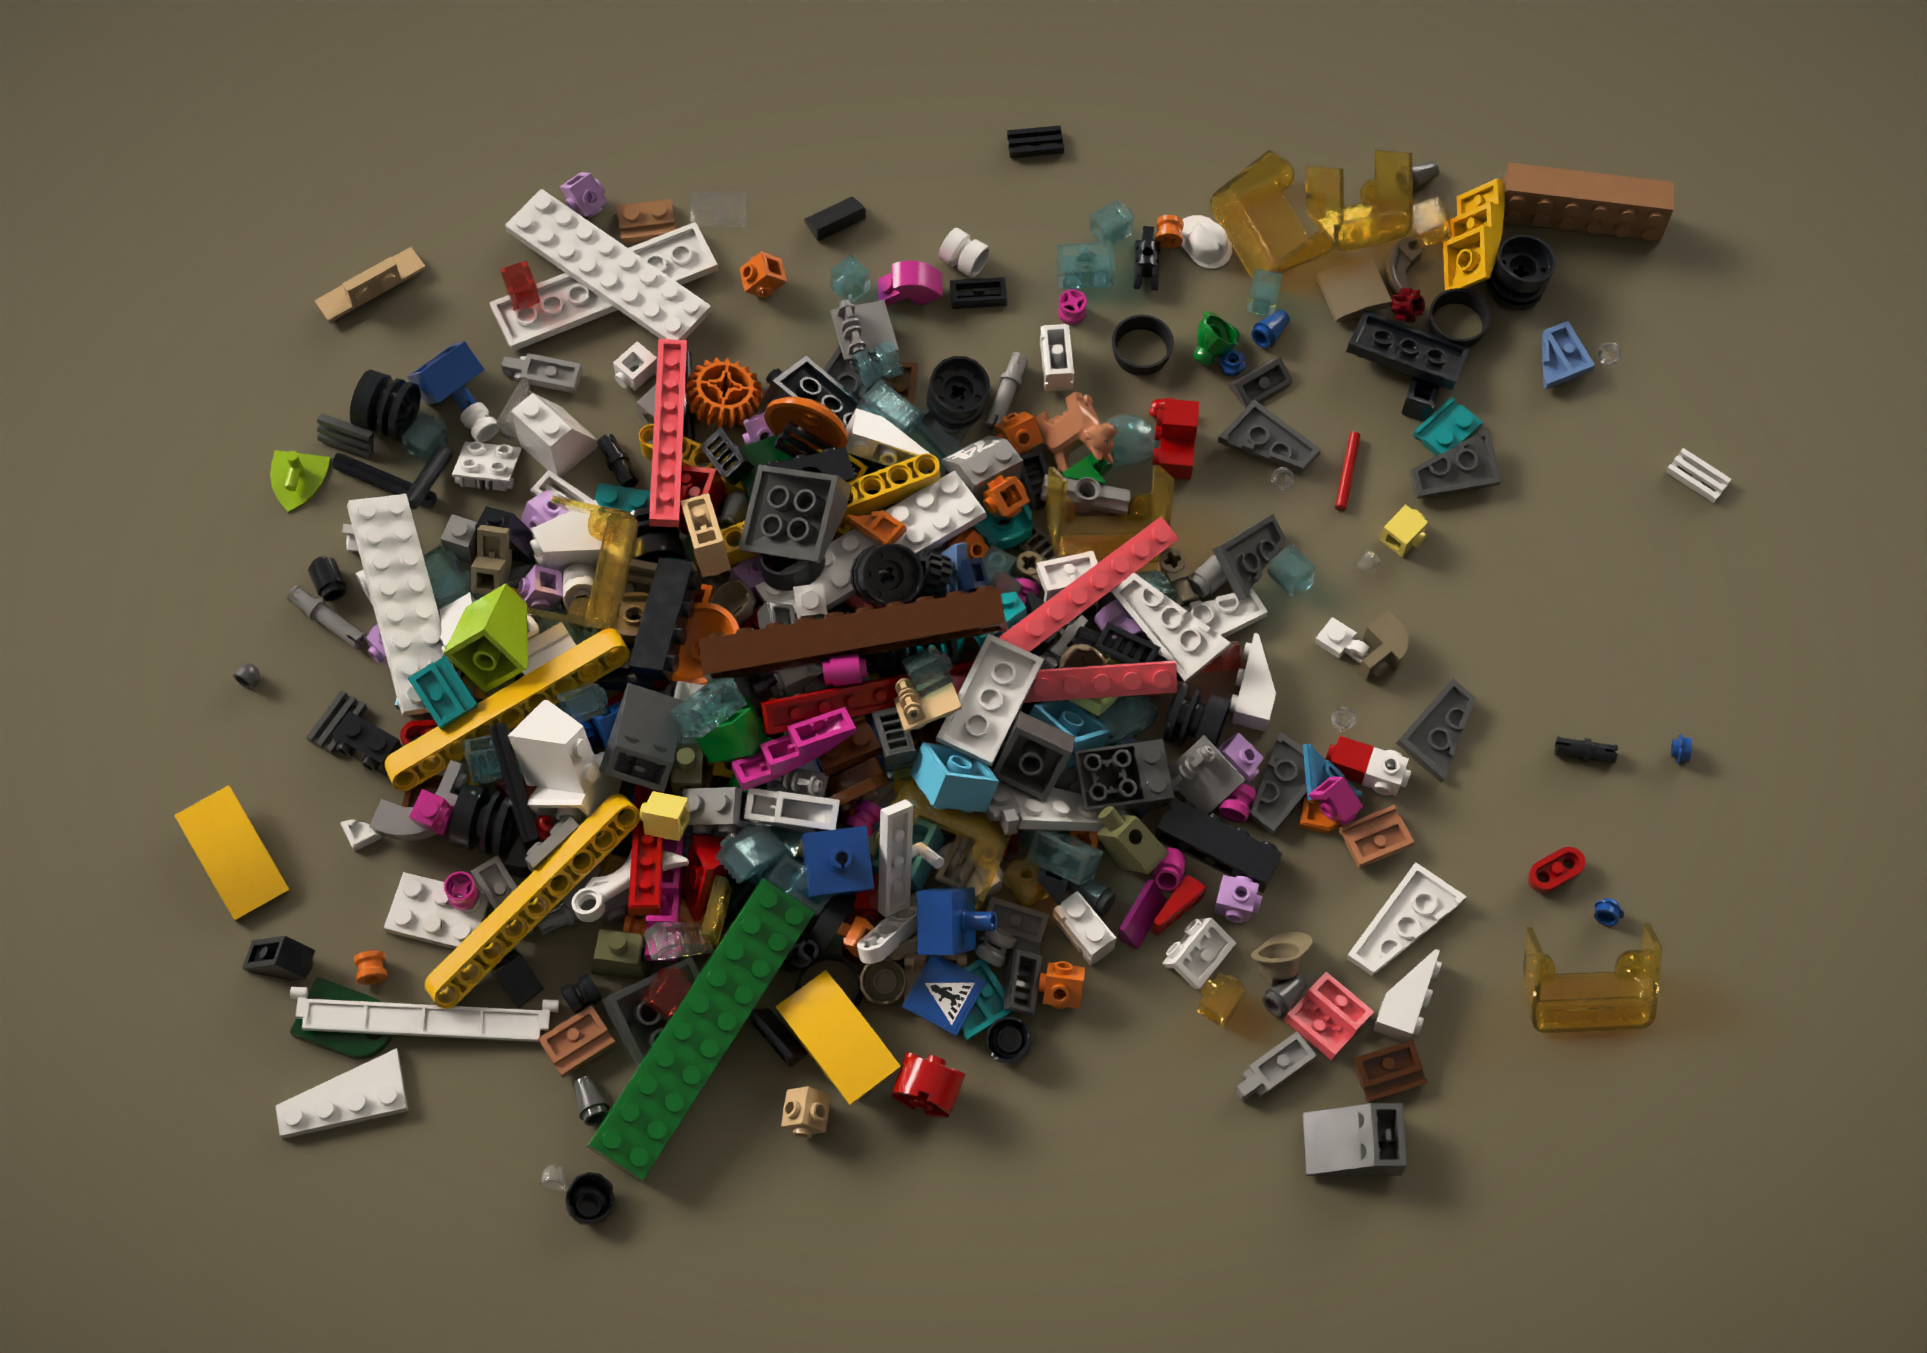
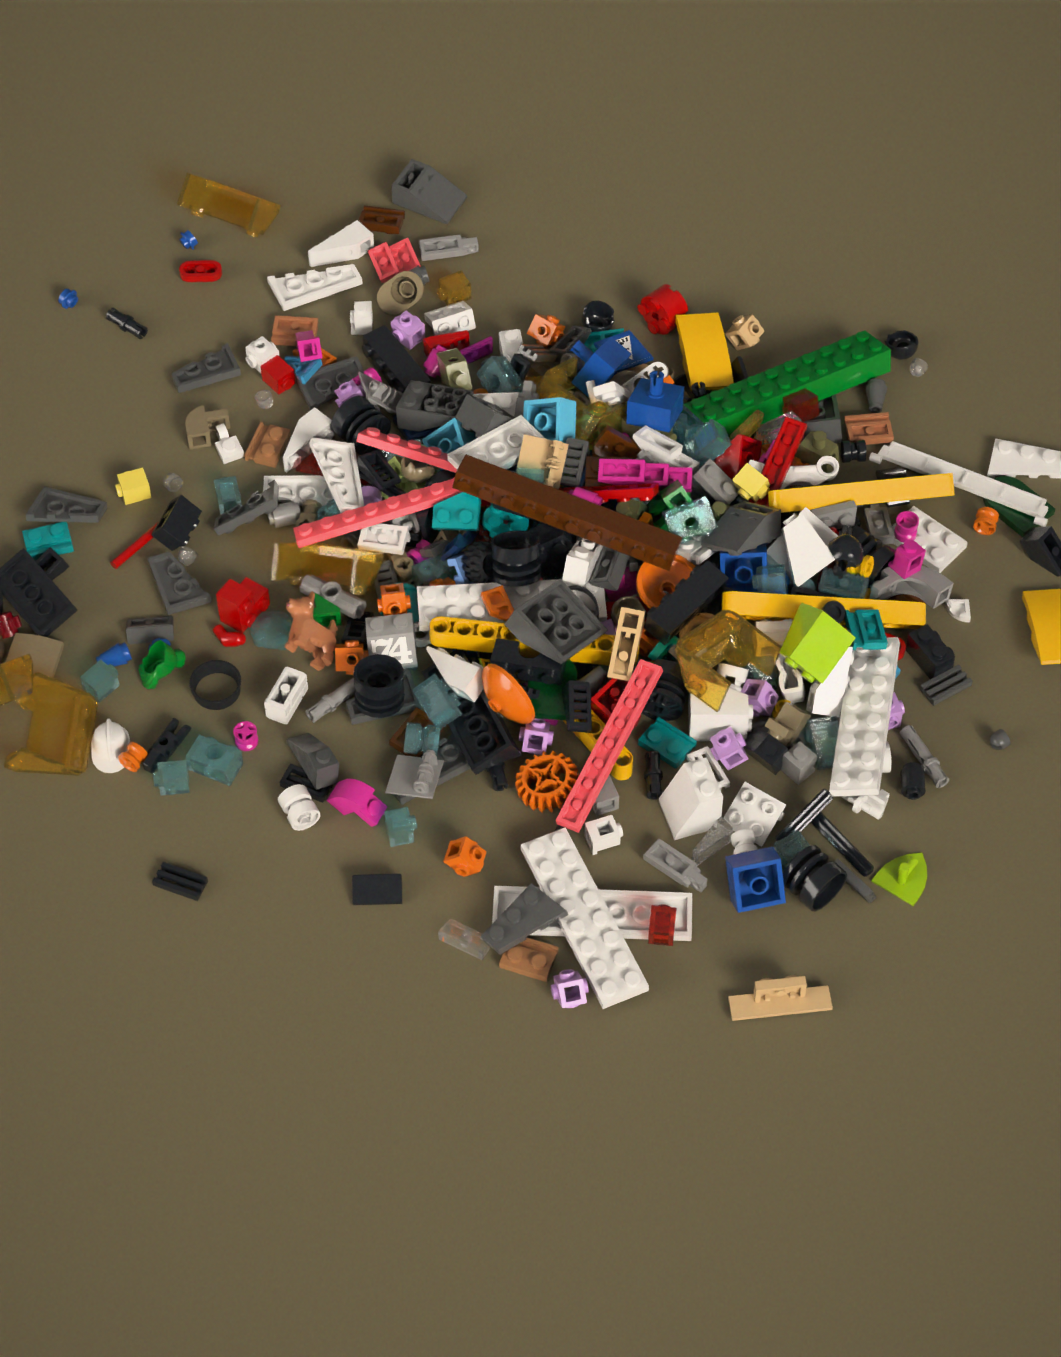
camera: 150 degrees left, 10 degrees down
(485, 777) = (865, 568): none -> yellow wheel
(490, 696) = (835, 610): none -> black tile
(501, 753) = (847, 548): none -> black hair
(663, 232) = (527, 914): none -> dark grey wing
(984, 307) = (315, 760): none -> dark grey slope
(1042, 948) = (537, 353): none -> dark grey tile
(1297, 666) = (267, 444): none -> medium nougat plate
(1305, 892) = (361, 318): none -> white brick
(1318, 500) = (177, 523): none -> black brick

